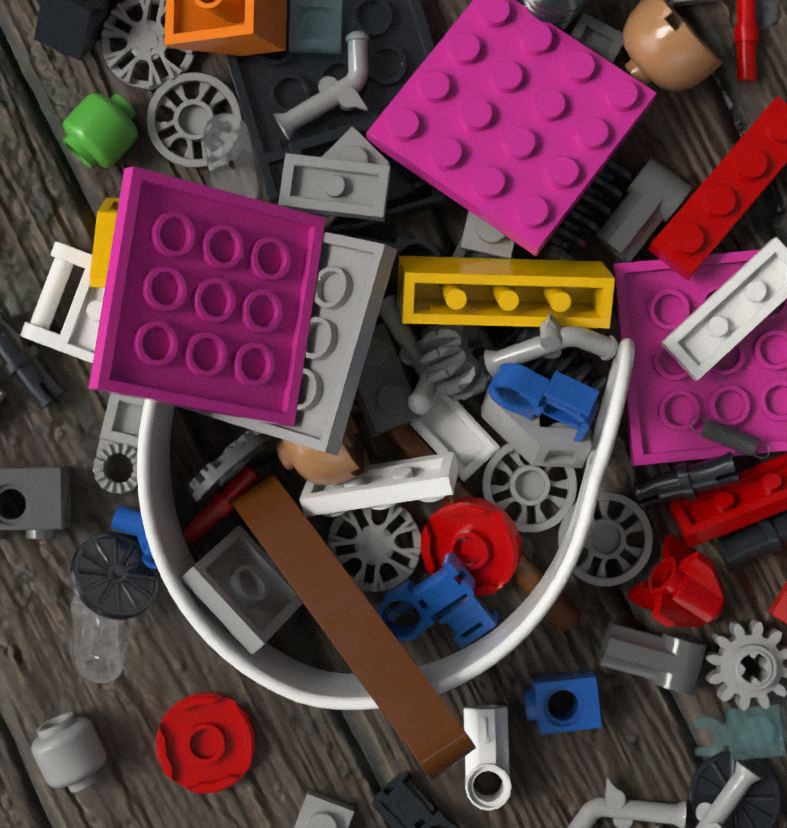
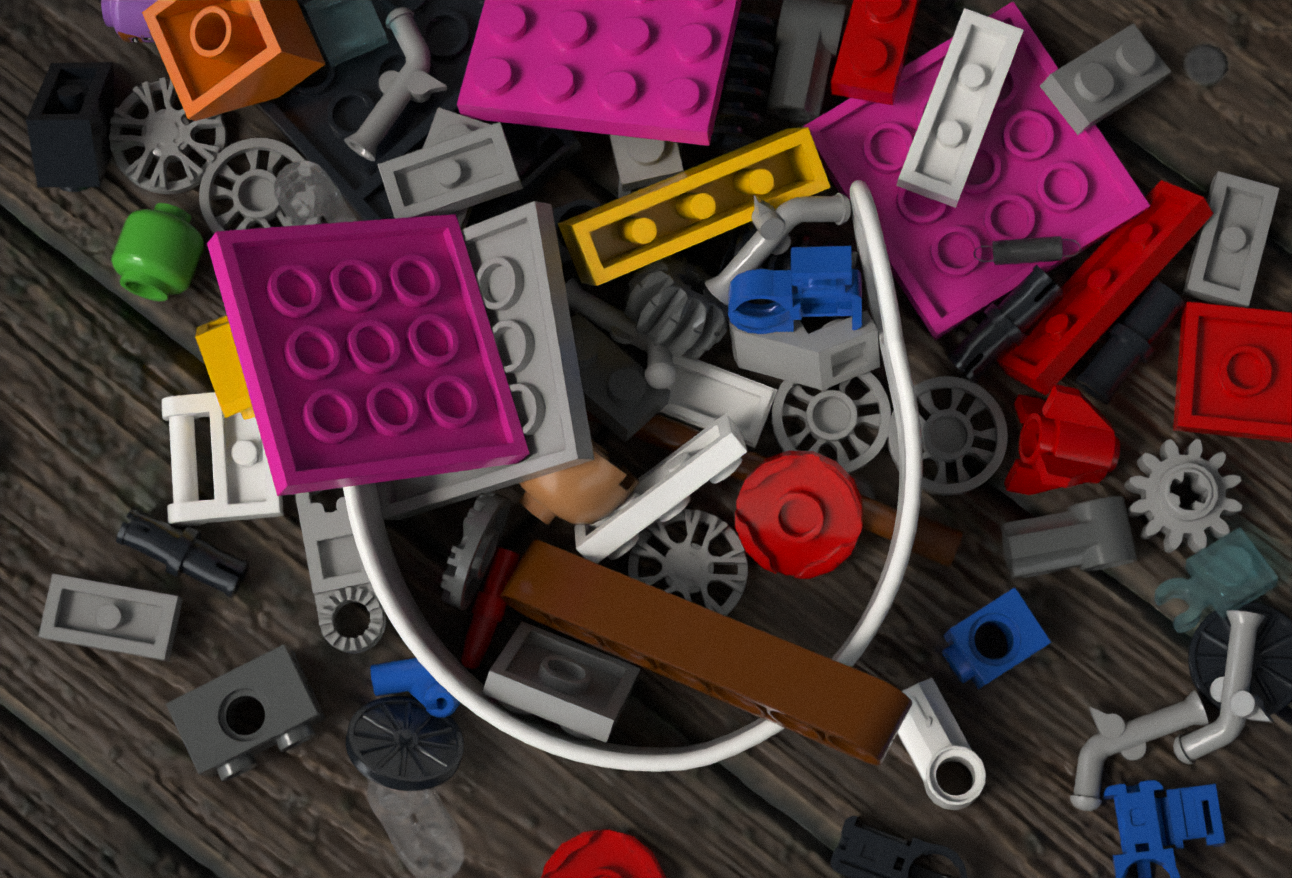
camera: 20 degrees left, 10 degrees down
(442, 595) = (799, 582): blue piece -> none

